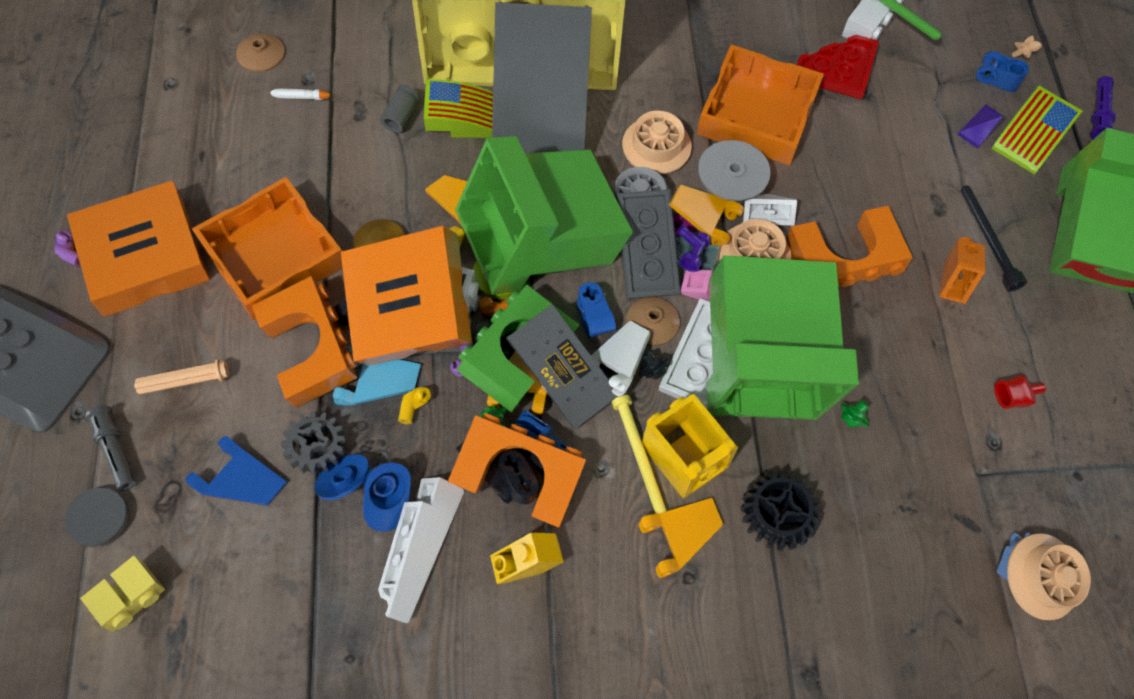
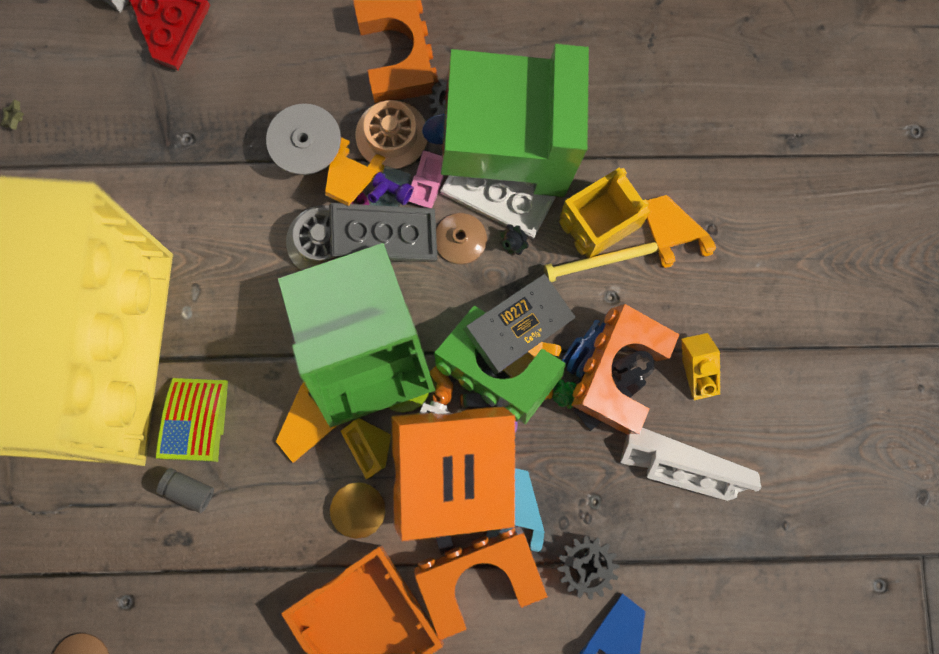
camera: 85 degrees left, 15 degrees up
(316, 94) = (150, 609): white piece -> none
(343, 477) = (628, 549): blue dish -> none
(384, 495) = (642, 495): blue piece -> none
(411, 402) = (543, 473): yellow arm -> none
(541, 75) = (199, 325): dark grey piece -> none
(594, 310) = (456, 290): blue piece -> none
(623, 355) = (502, 267): white flag -> none
(657, 142) = (253, 216): light nougat piece -> none
(760, 103) = (212, 105): orange tile -> none
(771, 208) = (344, 106): white slope -> none
(805, 515) = (677, 149): black gear -> none

